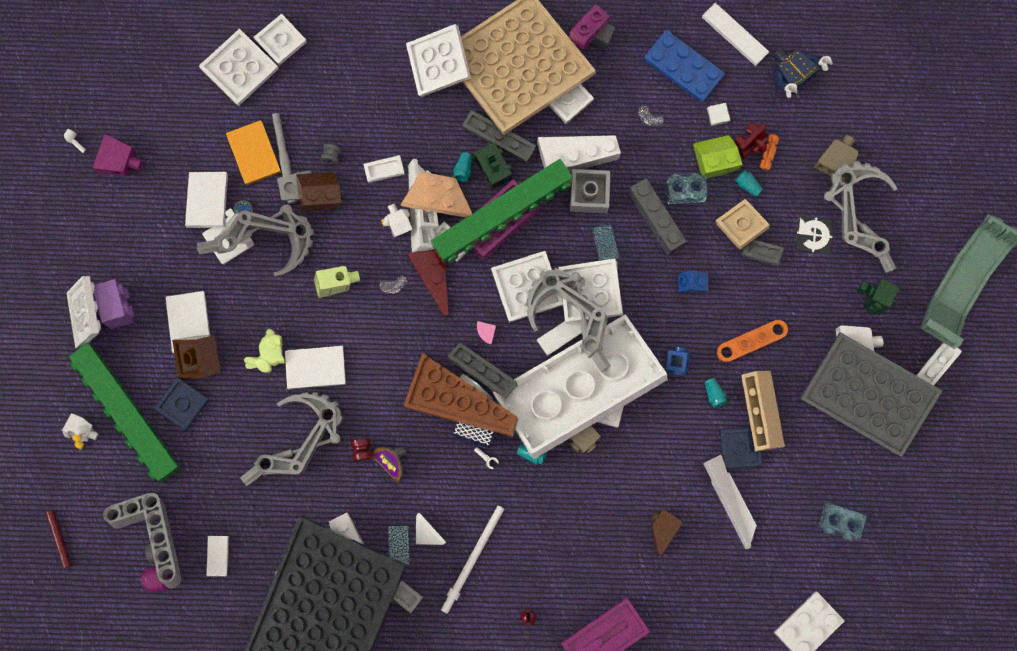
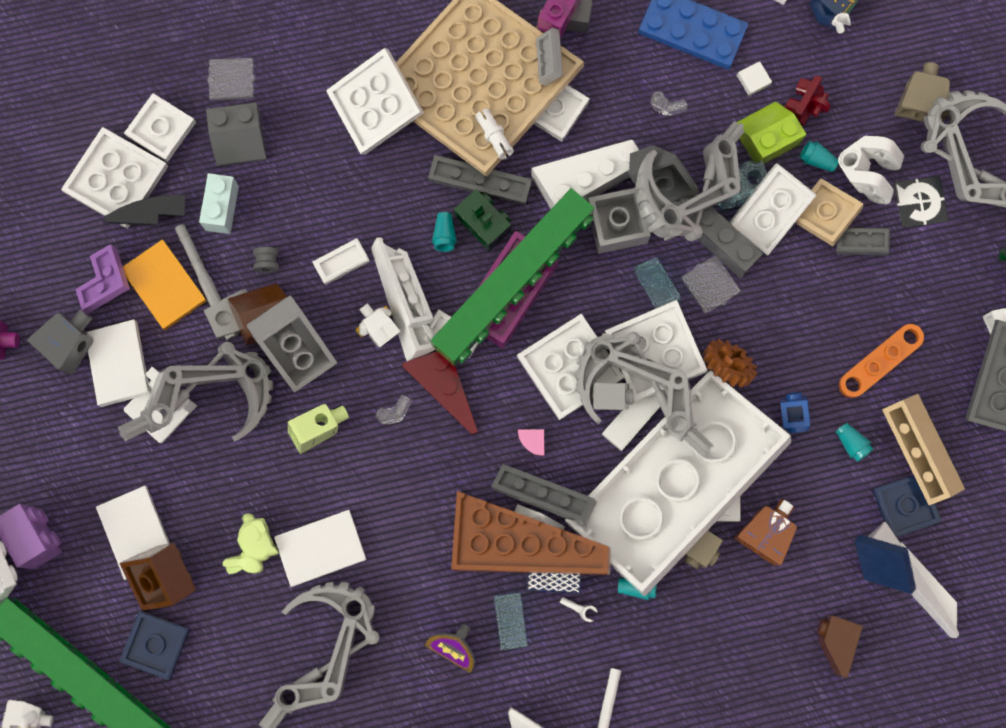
camera: 10 degrees left, 0 degrees up
(173, 173) = (64, 340): none -> dark grey torso
(215, 141) = (107, 284): none -> medium lavender plate
(243, 206) = (169, 358): tile -> none
(255, 97) = (147, 210): none -> black slope
(308, 105) = (219, 203): none -> light aqua brick
(333, 58) = (236, 134): none -> dark grey slope
(333, 218) = (291, 343): none -> light grey brick
(340, 17) = (231, 79): none -> clear piece
(361, 445) = (408, 637): dark red wheel -> none
(435, 453) = (510, 621): none -> clear light blue plate
(437, 195) = (420, 277): light nougat wing -> none
(517, 106) = (494, 134): none -> white pin
(550, 314) = (612, 396): none -> light grey brick
(571, 60) = (549, 56): none -> light grey plate
(626, 167) = (667, 172): none -> dark grey slope
(636, 440) = (769, 532): none -> dark orange torso
(641, 313) = (729, 363): none -> dark orange gear
(644, 254) = (710, 284): none -> clear piece
(671, 175) = (720, 174): none -> light grey piece
(693, 281) = (783, 303): blue bracket -> none
(702, 211) = (772, 209): none -> white tile
(710, 482) = (885, 564): none -> dark blue tile
(769, 154) = (833, 126): orange axle -> none
(773, 195) = (871, 183): none -> white piece

